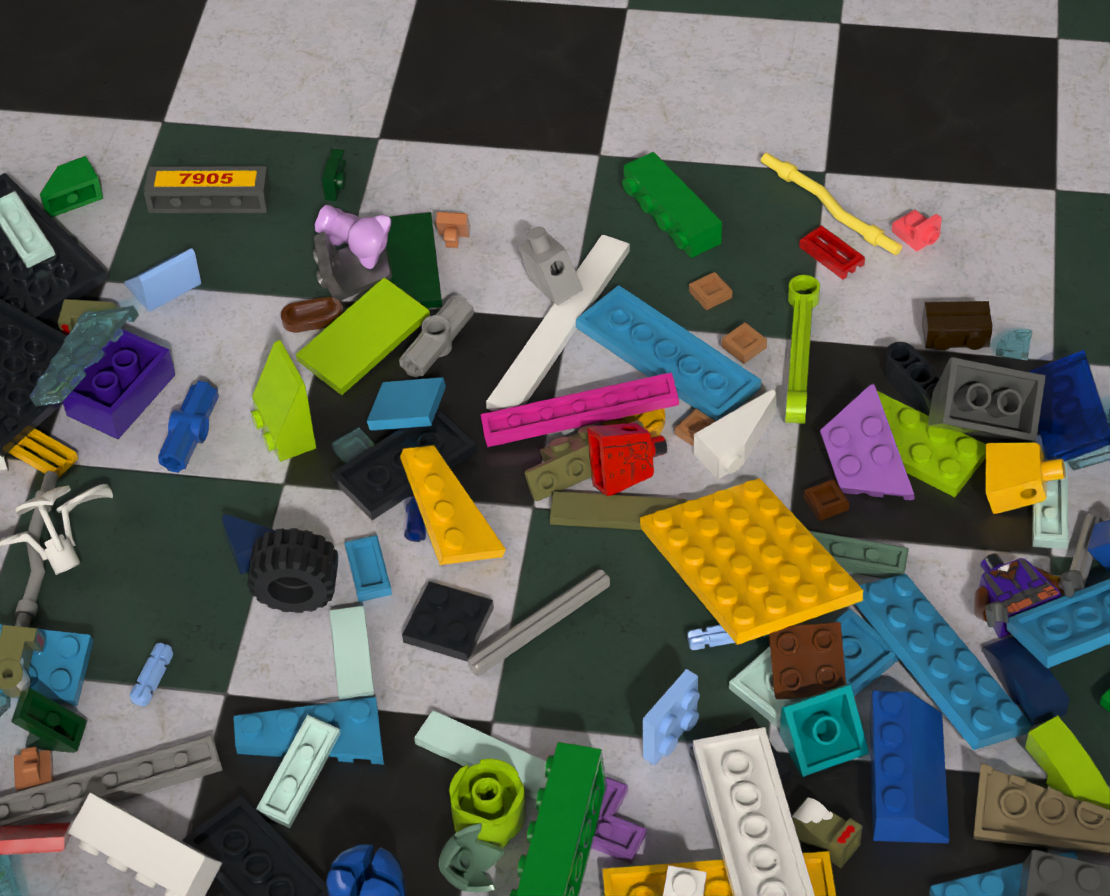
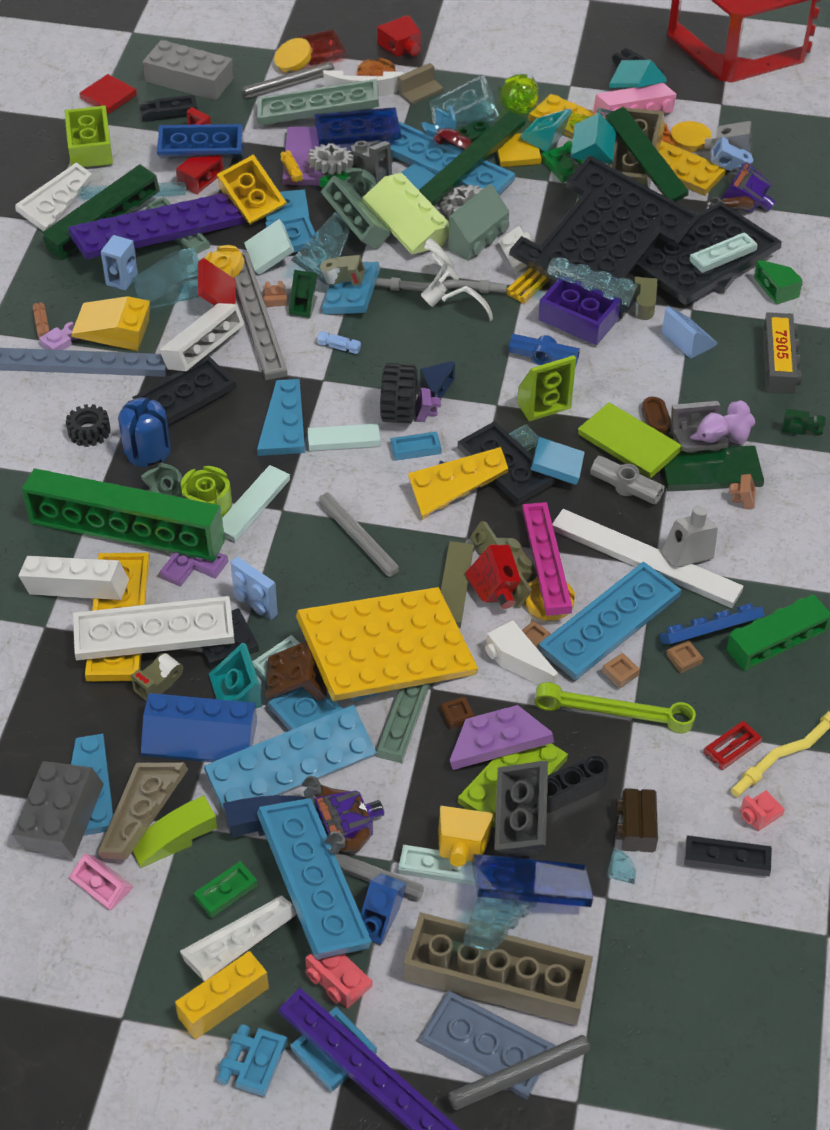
camera: 90 degrees right, 0 degrees up
(298, 771) = (251, 408): light aqua tile -> none
(448, 621) = (365, 486): black plate -> none
(668, 261) = (702, 626): none -> blue plate
(984, 255) = (728, 855): none -> black plate

